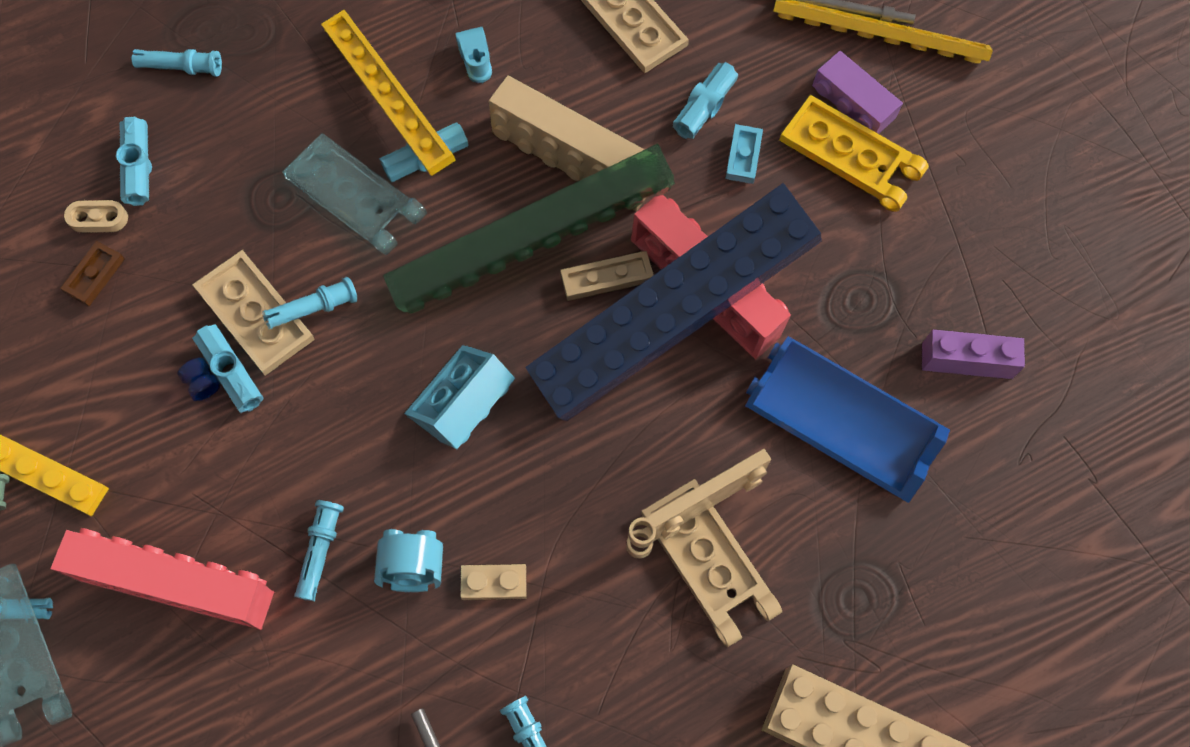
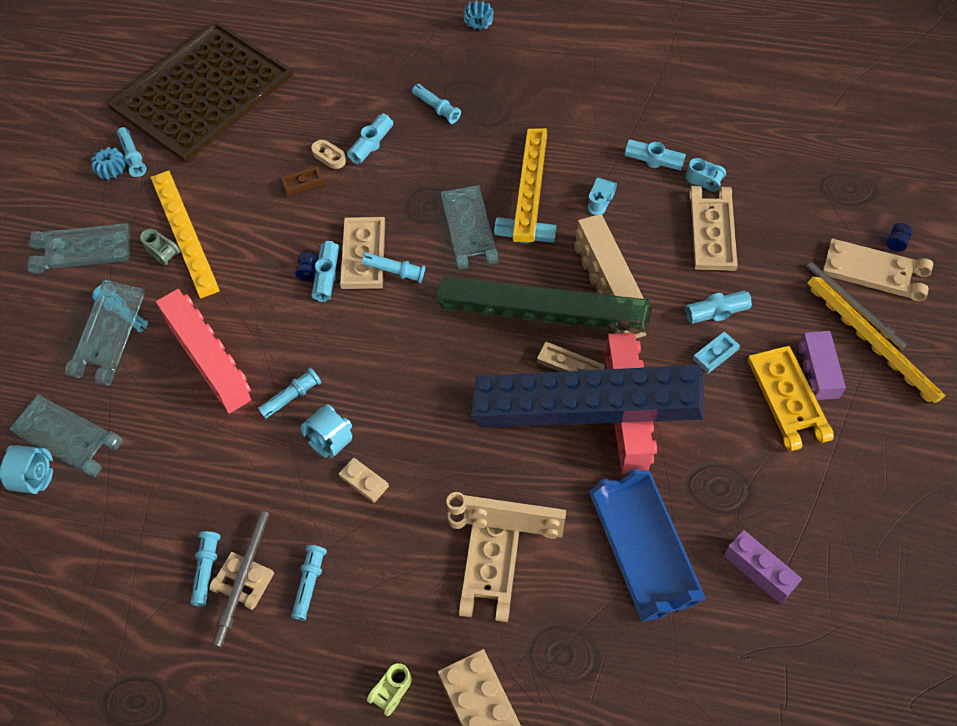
camera: 45 degrees right, 10 degrees down
(461, 395) = (431, 370): medium azure slope -> none

